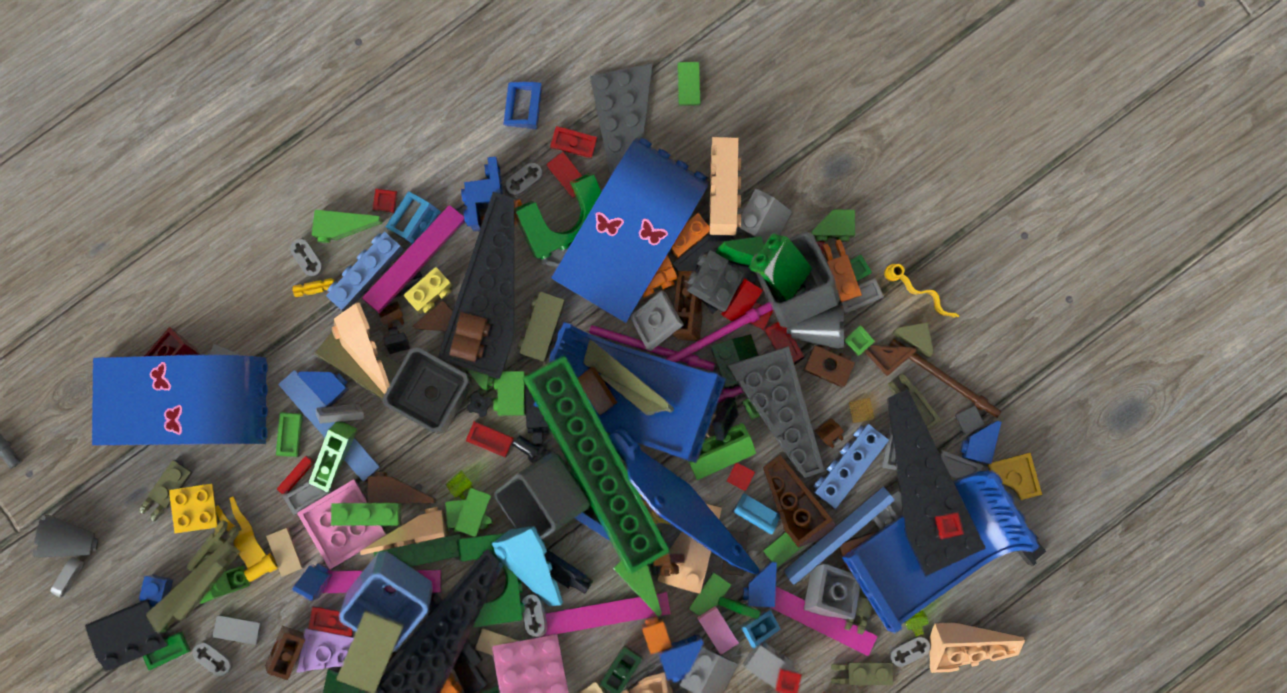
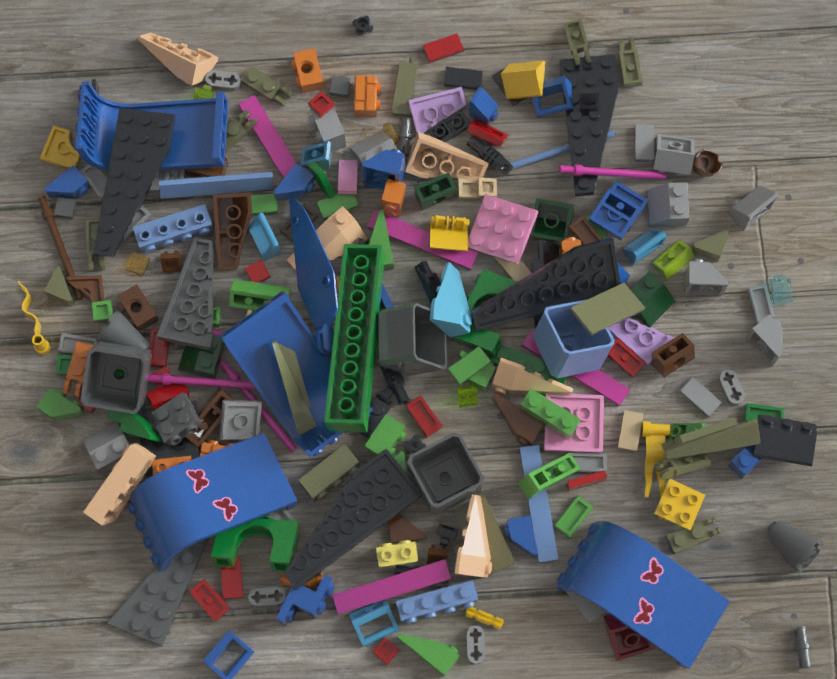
camera: 145 degrees left, 10 degrees down
(67, 577) = (807, 515): light grey beam -> none
(312, 582) = (620, 390): blue slope -> none
(339, 413) = (524, 504): light grey tile -> none
(469, 336) = (387, 490): reddish brown brick -> none
(539, 615) = (469, 265): light grey beam -> none
(580, 636) = (449, 233): none -> yellow hinge
(597, 391) = (318, 396): reddish brown tile -> none
(669, 563) = (348, 239): reddish brown tile -> none
(688, 84) = (90, 589): bright green tile -> none
(725, 418) = (239, 314): black tile -> none
(781, 267) = (120, 392): green panel -> none
(832, 592) = (248, 149): light grey slope -> none
(949, 525) = (133, 137): red tile -> none

